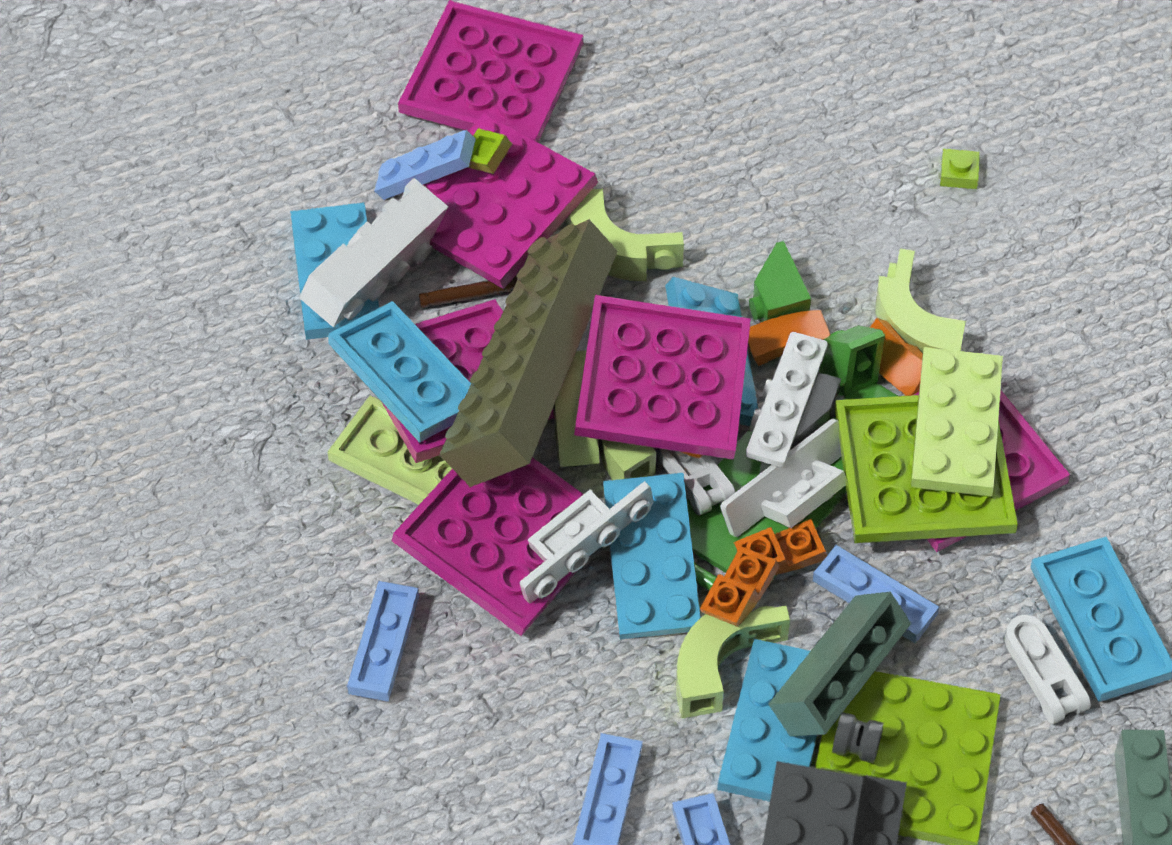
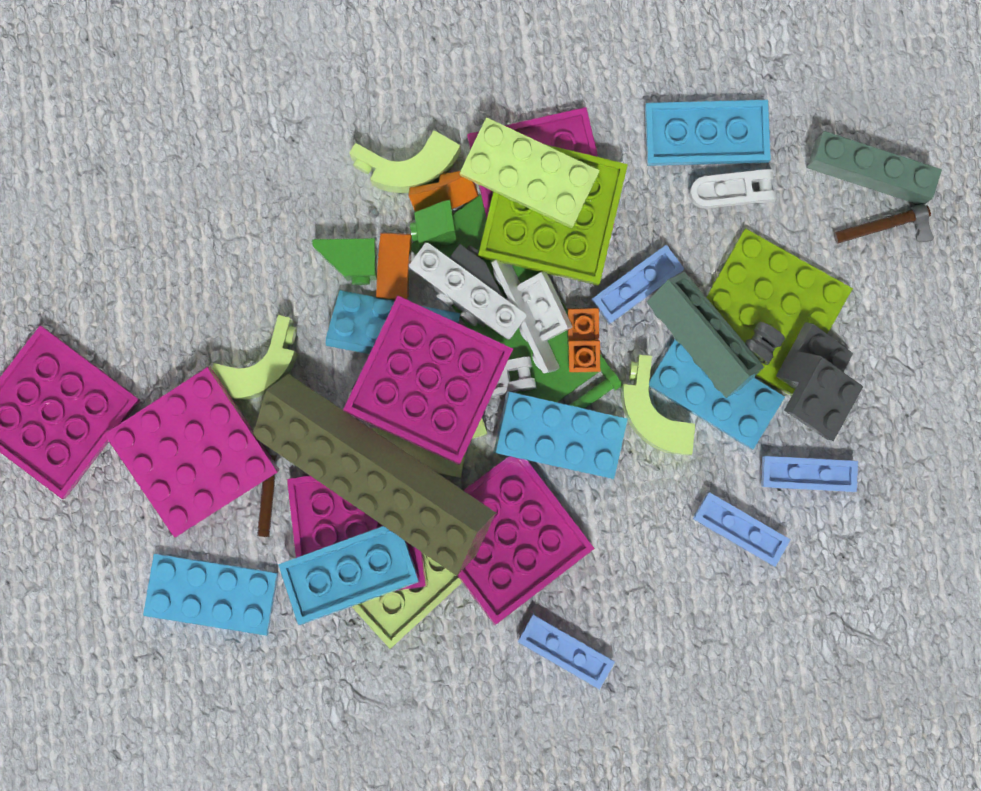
camera: 75 degrees left, 30 degrees up
(375, 255) = (228, 566): white wedge -> none
(425, 164) = (143, 497): light blue plate -> none
(488, 150) = (155, 448): lime plate -> none
(578, 533) = (538, 488): white bracket -> none
(741, 588) = (618, 383): orange slope -> none
(959, 168) = (272, 74): lime plate -> none

